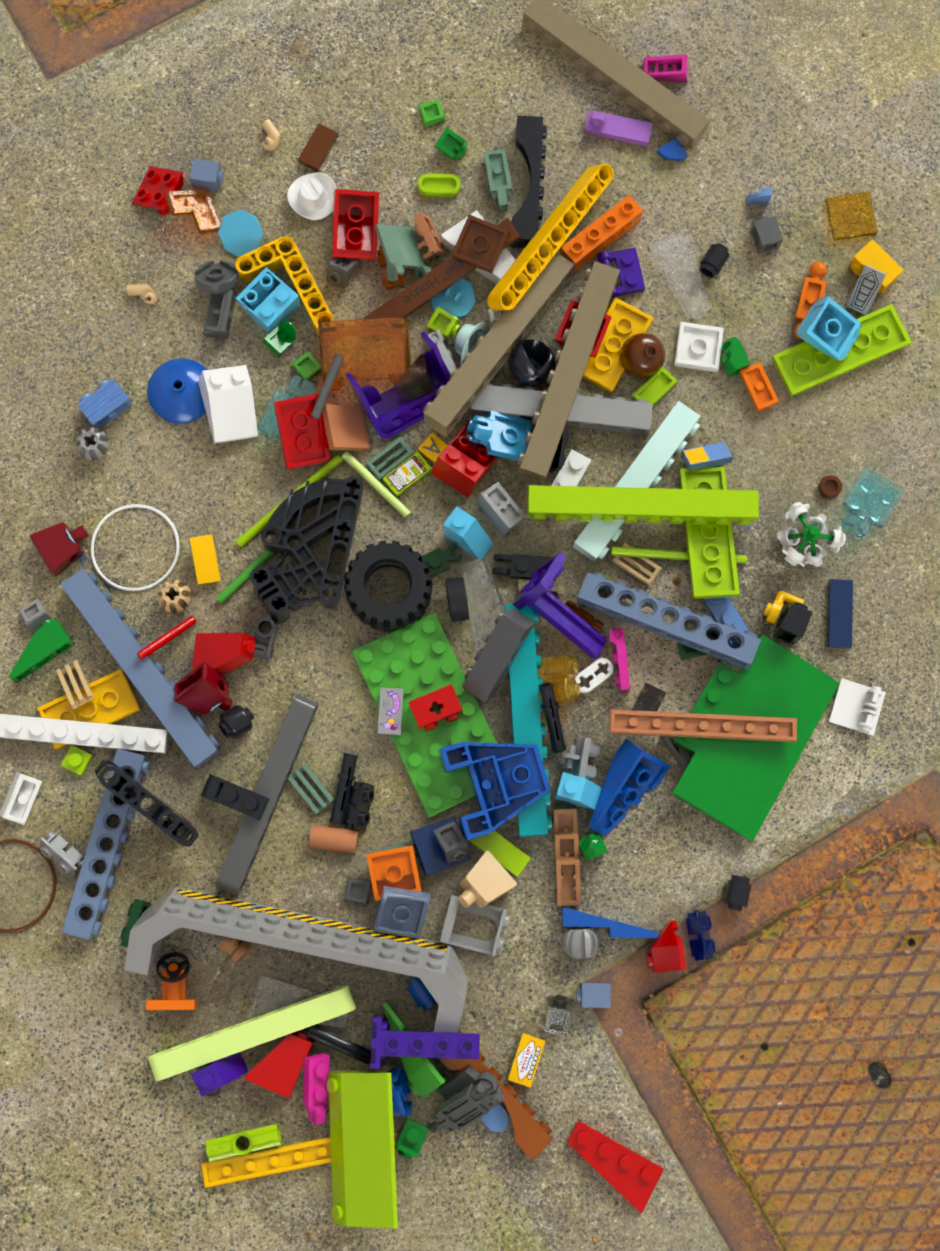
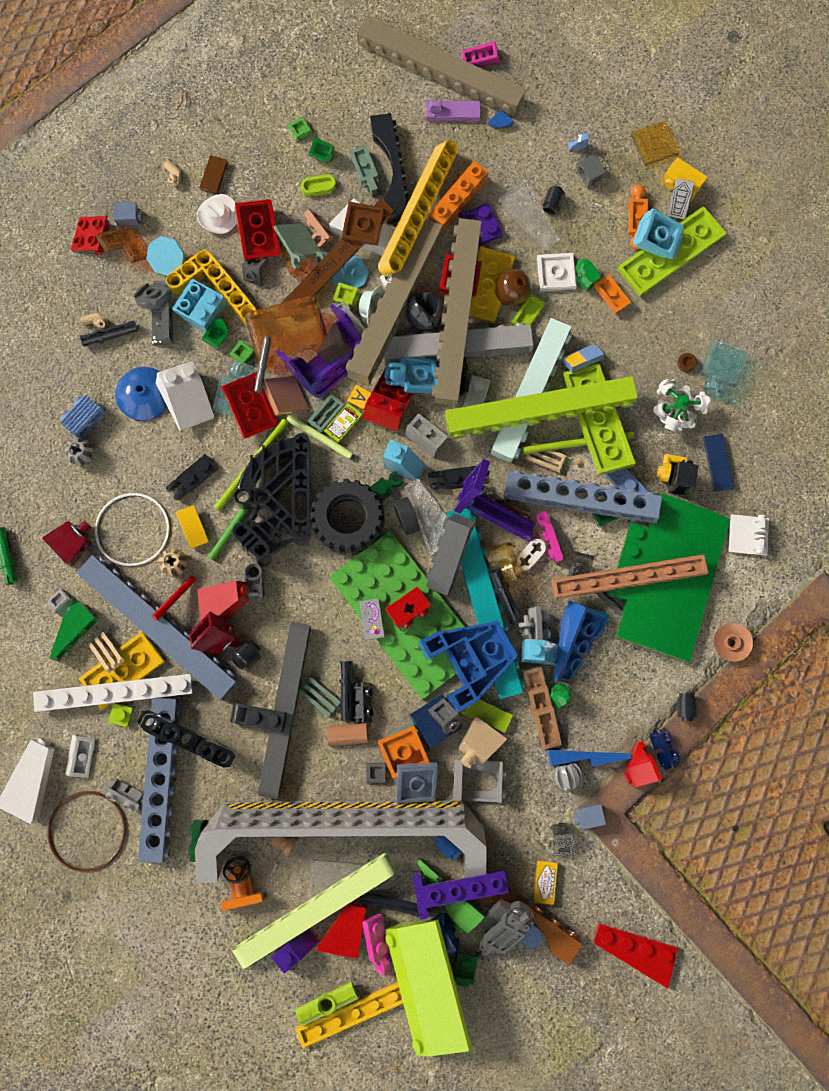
camera: 10 degrees left, 0 degrees up
(147, 312) = (100, 336): none -> black pin
(218, 500) = (193, 476): none -> black hinge
(820, 828) = (742, 642): none -> nougat dish

